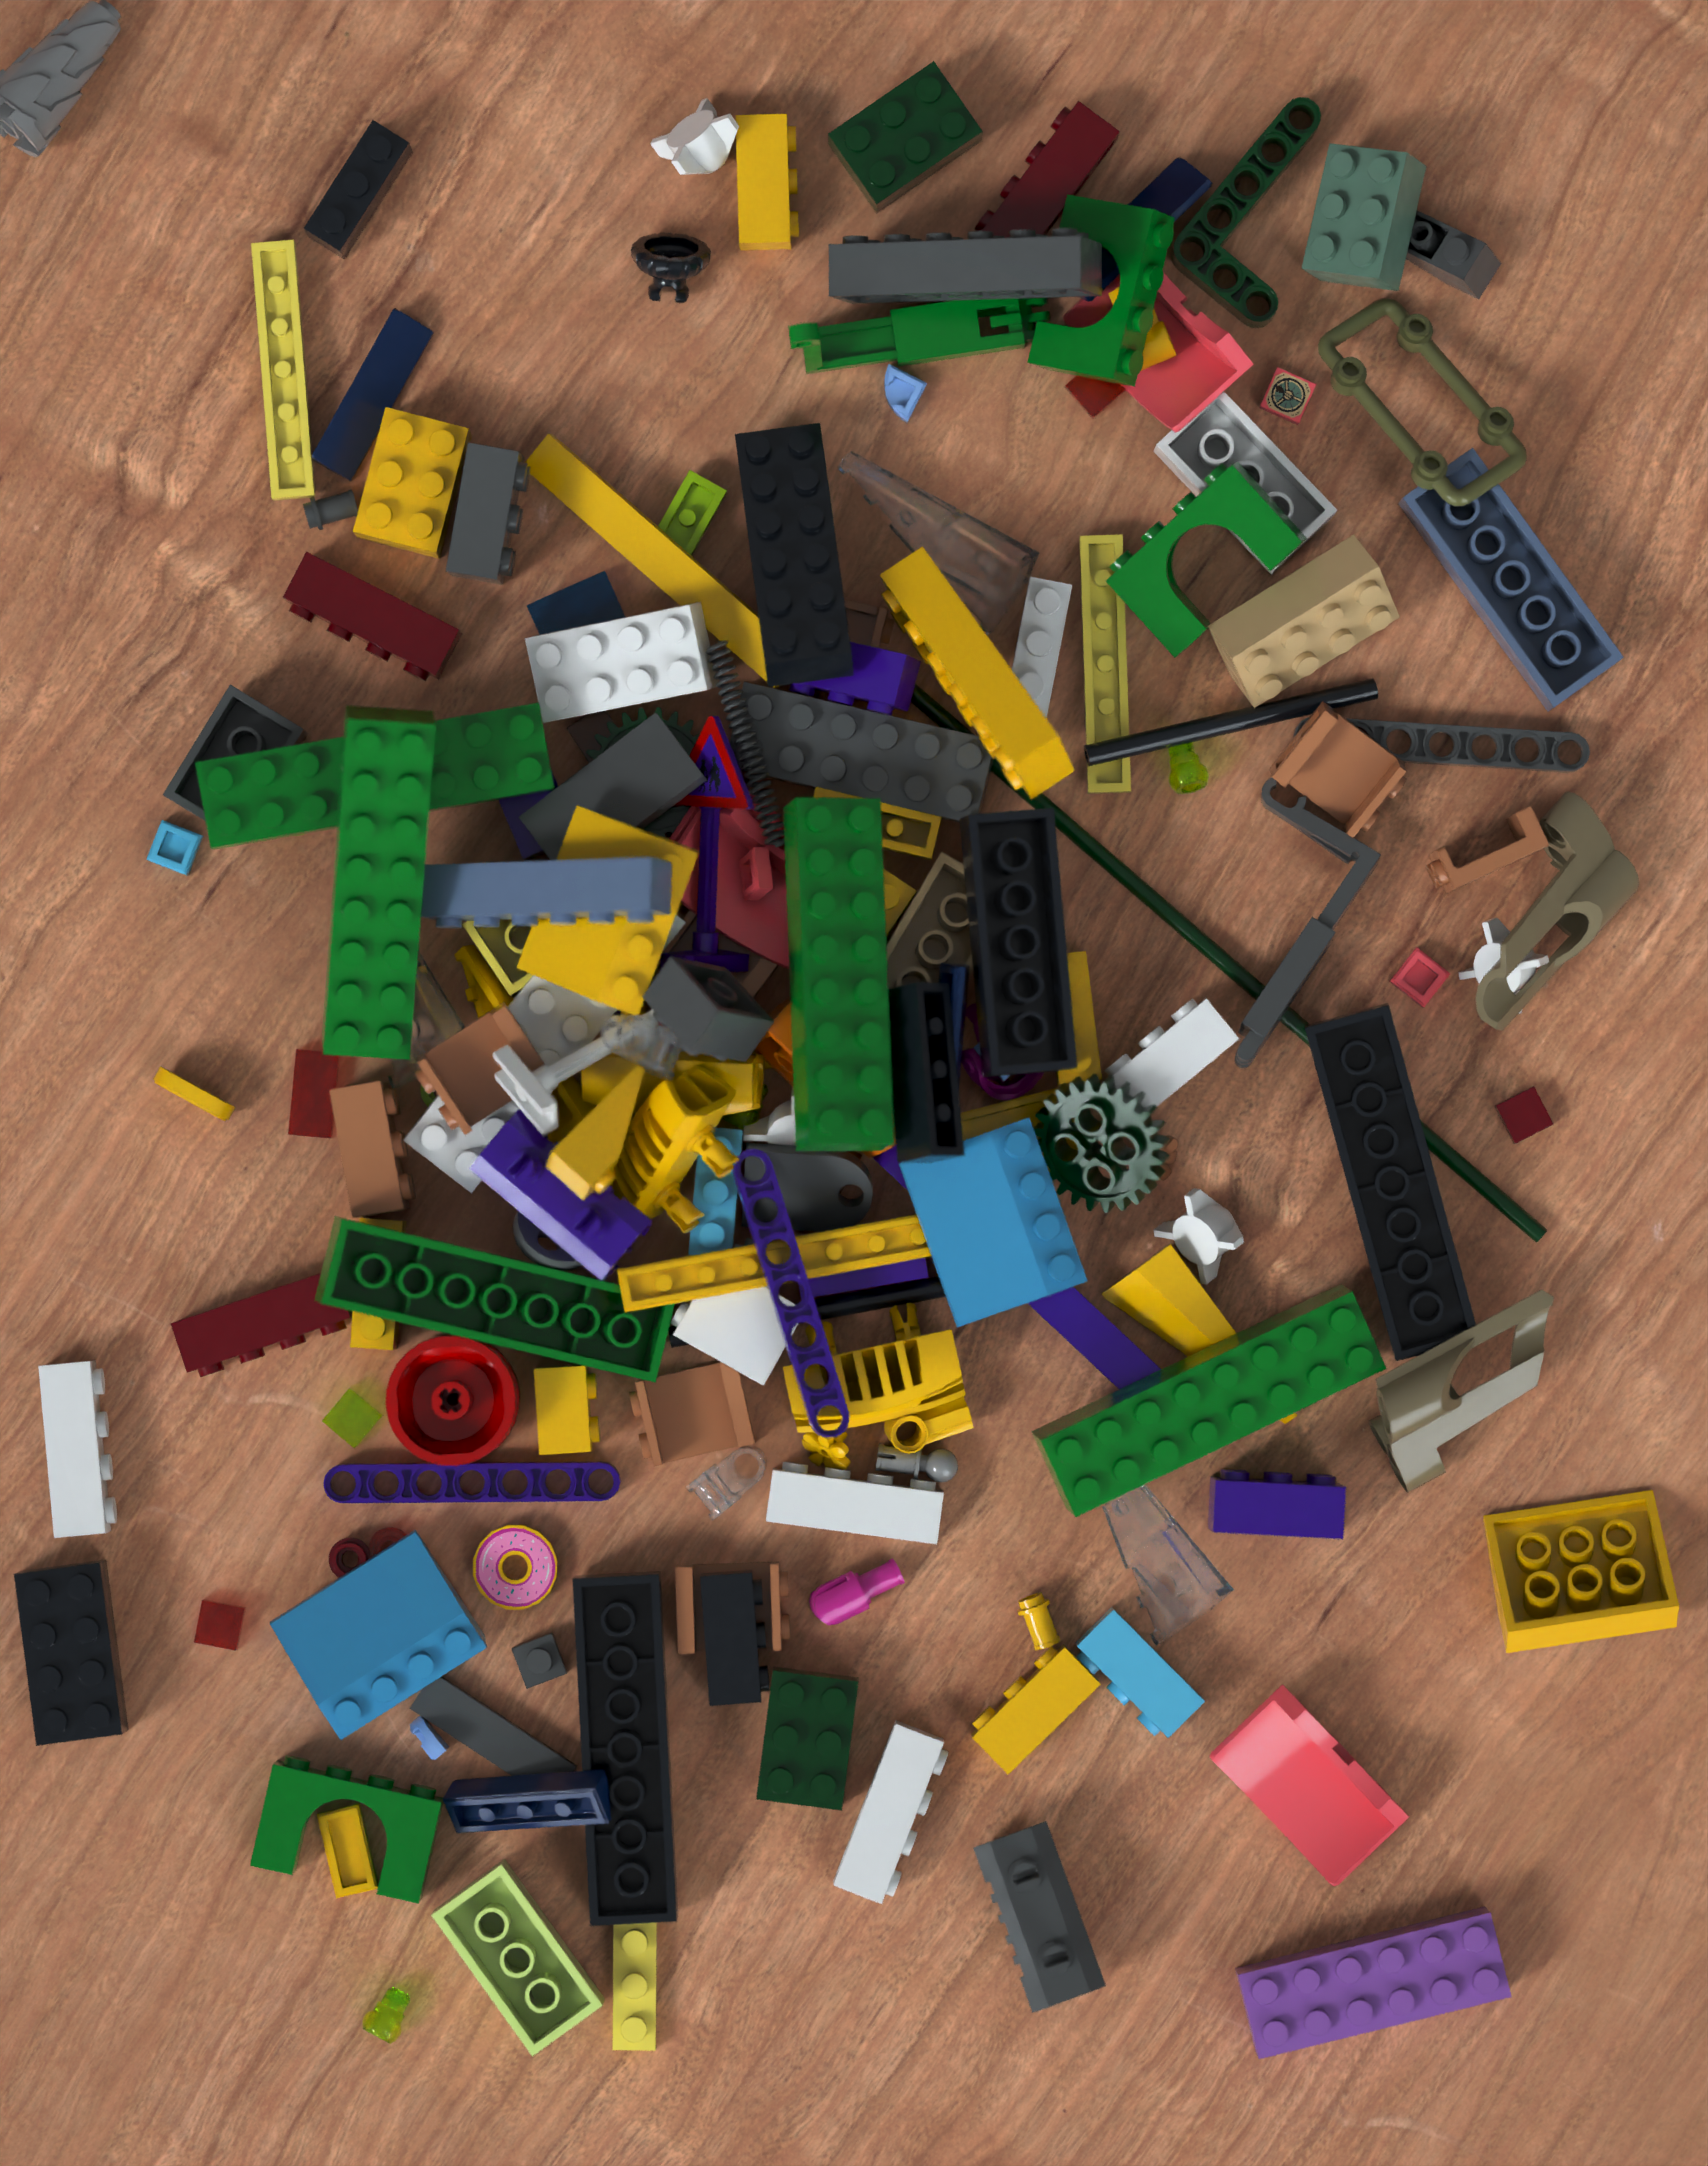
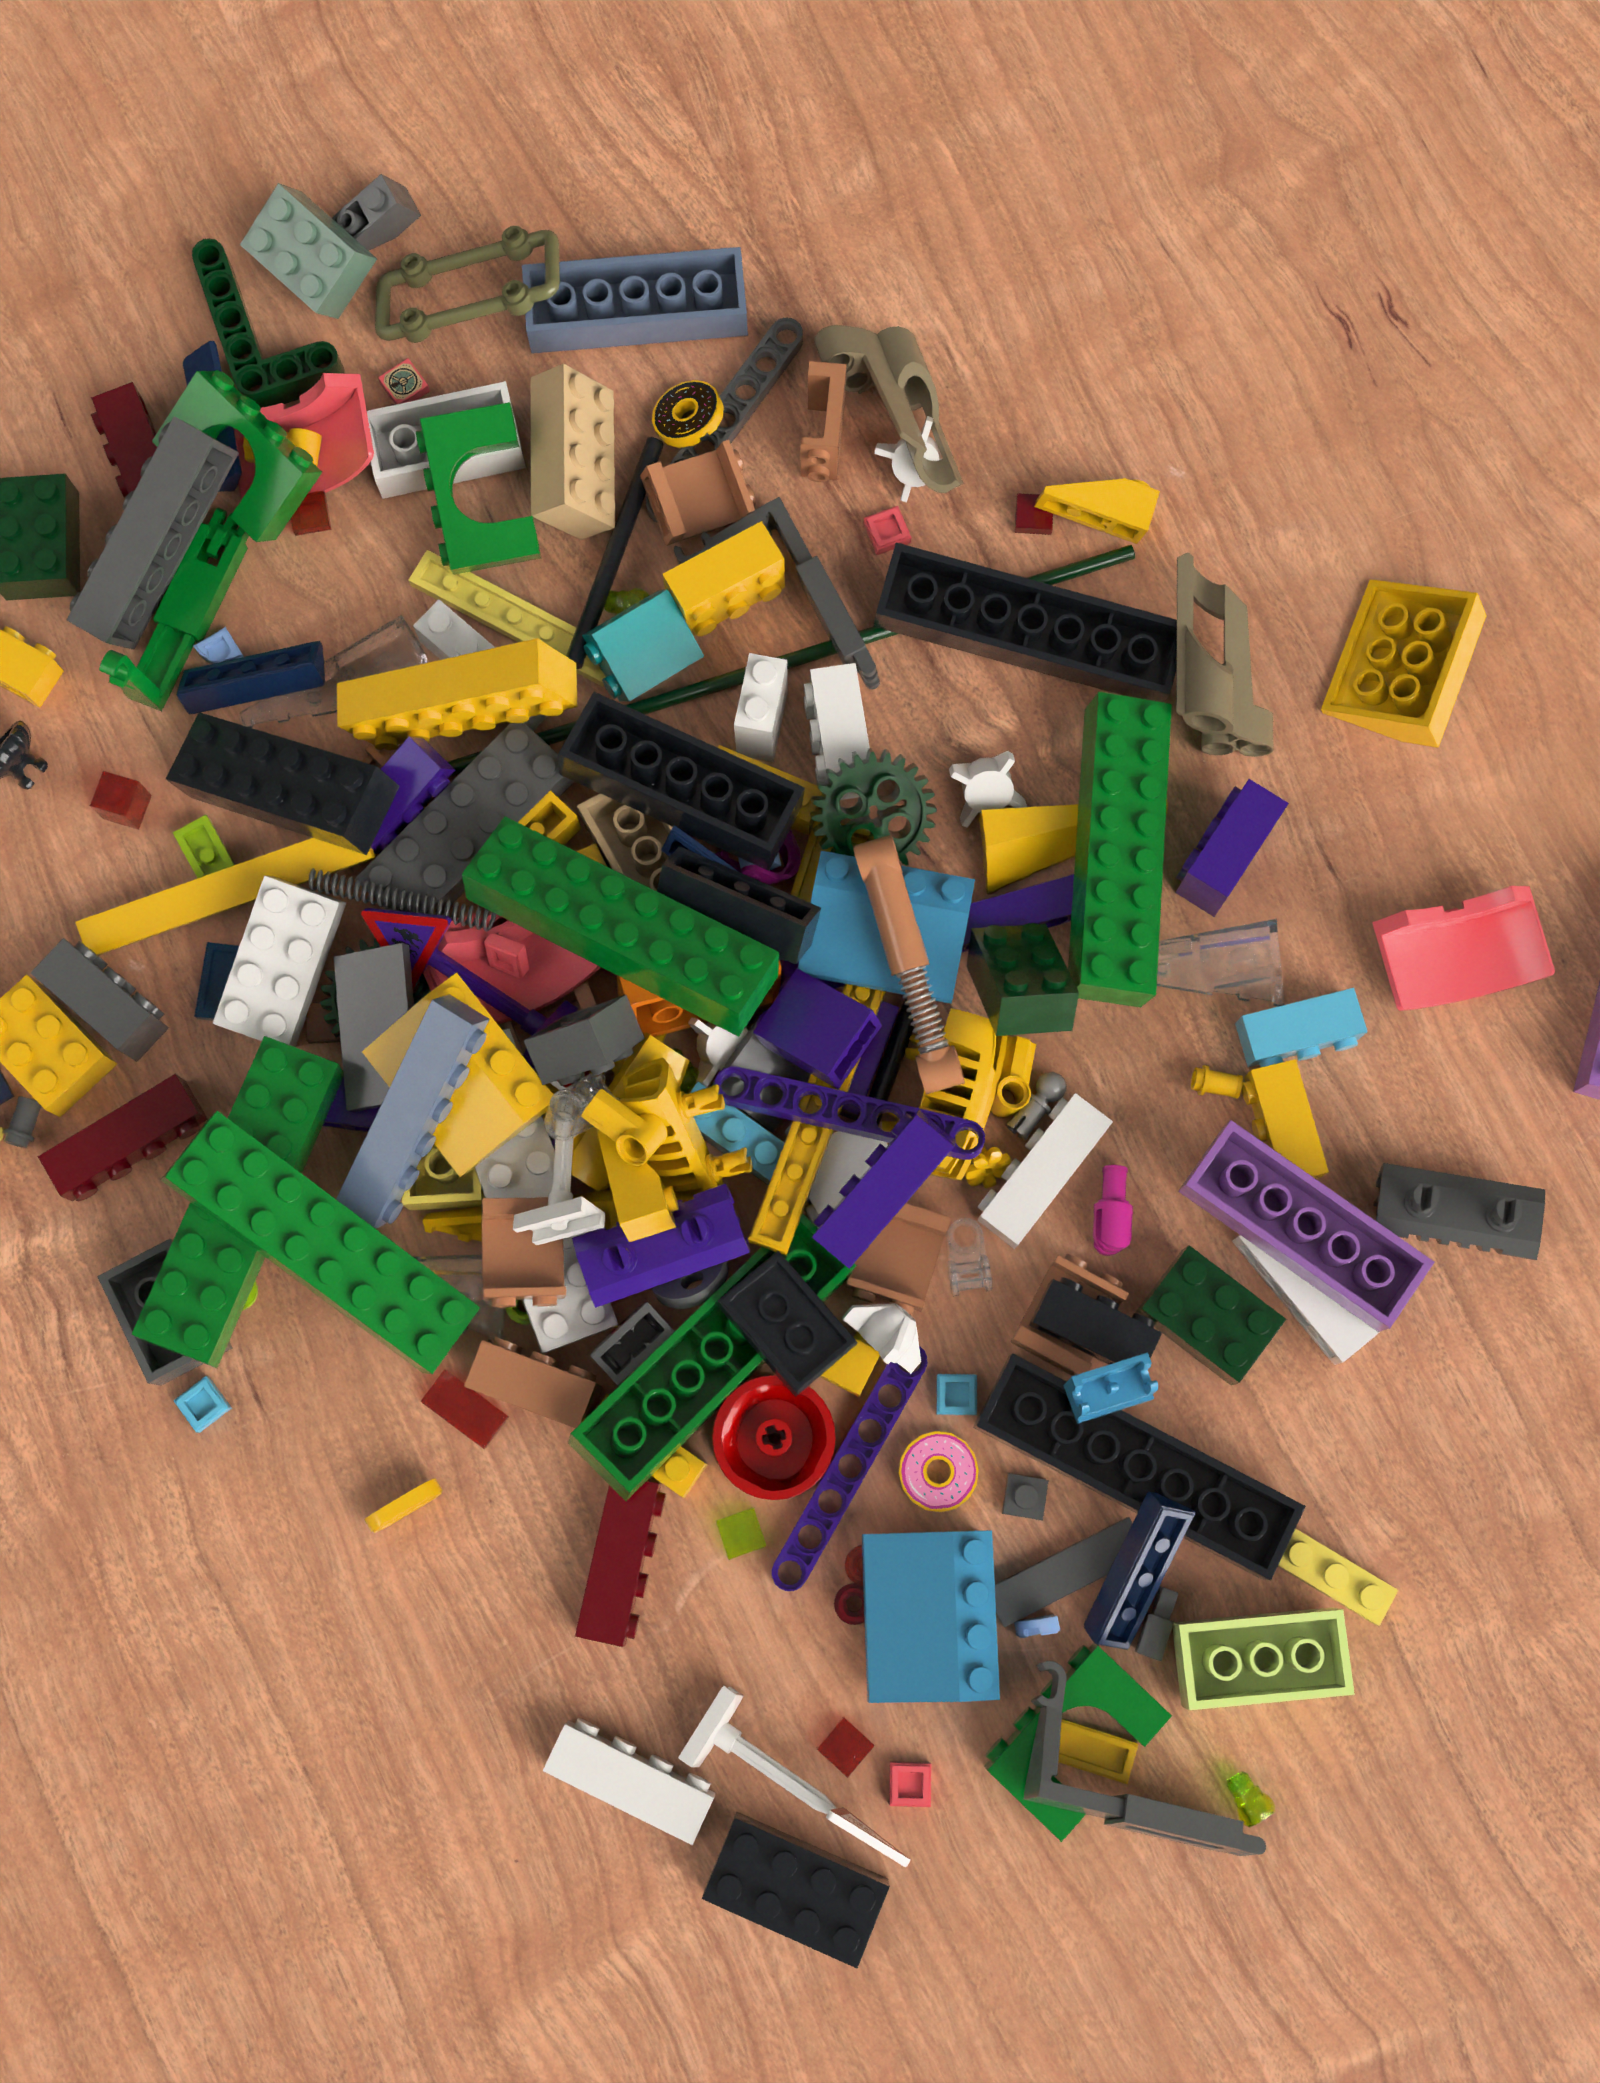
camera: 60 degrees left, 10 degrees down
(165, 1500) = (716, 1730): none -> white piece
(221, 1702) = (910, 1784): none -> coral tile
(310, 1906) = (1124, 1810): none -> dark grey hinge
(459, 1217) = (631, 1342): none -> dark grey torso
(493, 1847) = (1157, 1625): none -> dark grey bar
(560, 1351) = (786, 1323): none -> black tile
(596, 1543) = (956, 1394): none -> medium azure tile
(611, 1448) = (888, 1331): none -> white piece
(643, 1113) = (634, 1134): none -> yellow piece
(677, 1683) = (1111, 1388): none -> dark azure hinge
(691, 398) = (120, 800): none -> clear red brick
(736, 1368) = (884, 1188): none -> dark purple brick
(854, 1215) = (817, 1028): none -> dark purple brick
(889, 446) = (252, 678): none -> dark blue slope
(935, 1779) = (1306, 1227): none -> medium lavender brick
(1019, 1380) = (1022, 979): none -> dark green brick
(1033, 1191) = (906, 959): none -> nougat piece
(1143, 813) = (642, 646): none -> teal brick
(1147, 969) = (761, 707): none -> white brick
(1259, 855) = (727, 579): none -> yellow brick
(1426, 684) = (676, 402): none -> tile
(1573, 1195) = (1111, 506): none -> yellow slope

